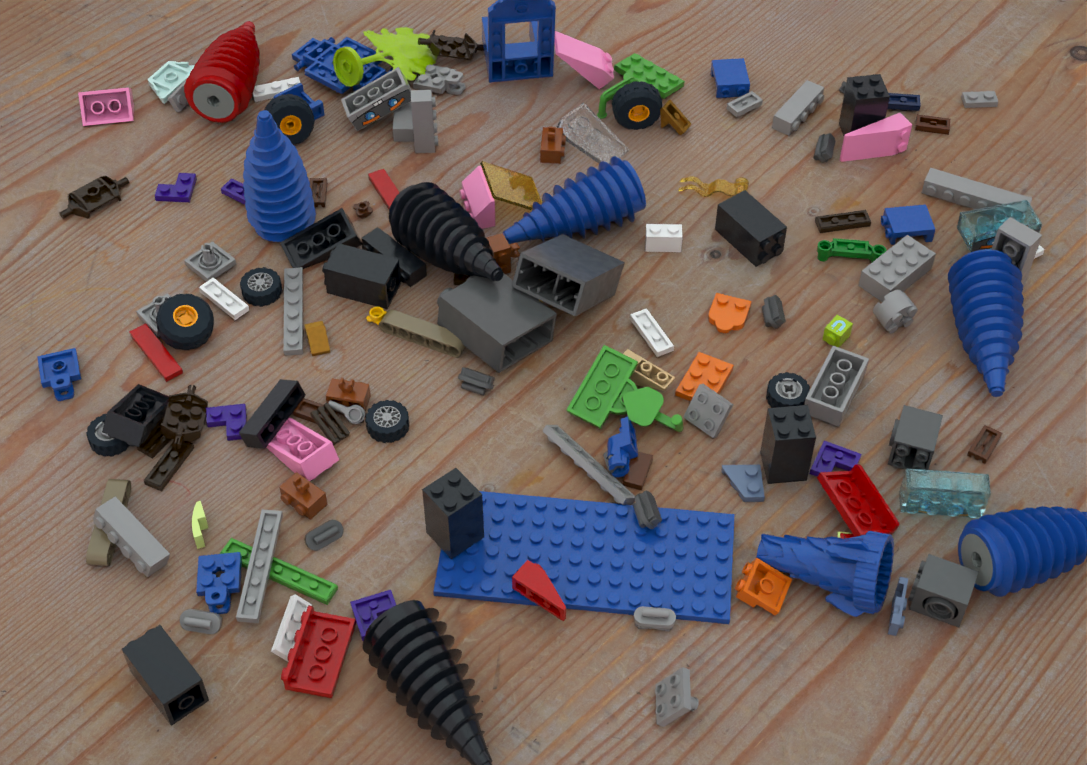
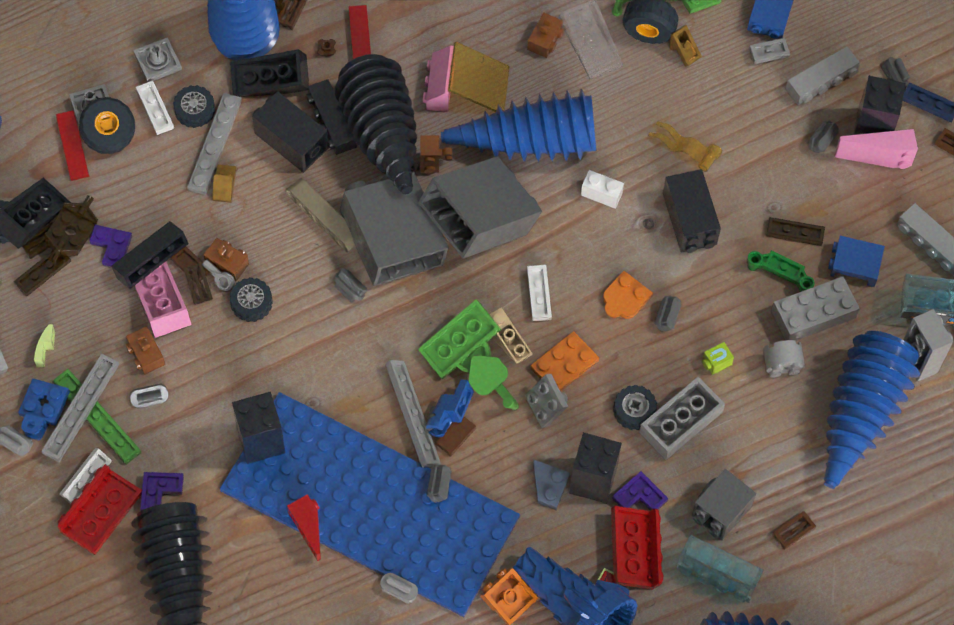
camera: 20 degrees right, 15 degrees up
(376, 315) = (289, 173): yellow plate -> none

